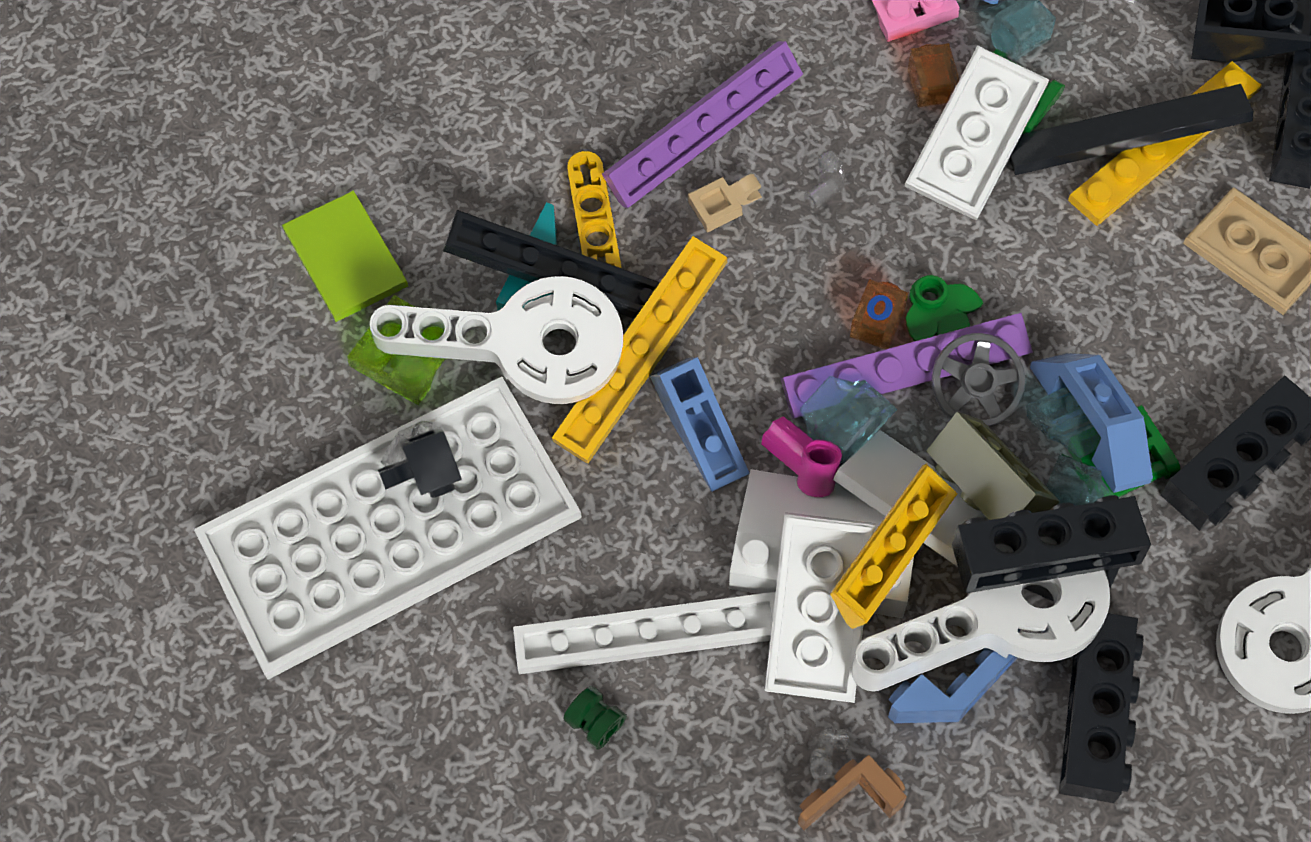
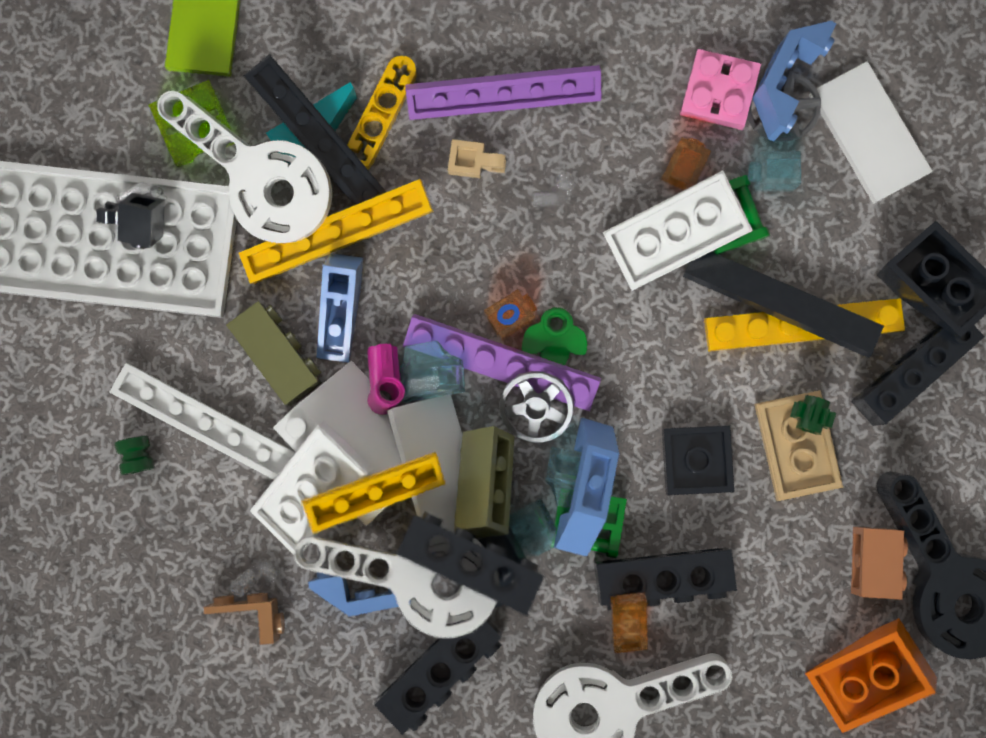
camera: 30 degrees right, 20 degrees up
(668, 509) = (275, 353): none -> olive brick
(1176, 325) = (698, 460): none -> black plate
(1248, 204) = (813, 414): none -> dark green gear
(1249, 517) = (629, 622): none -> clear orange tile

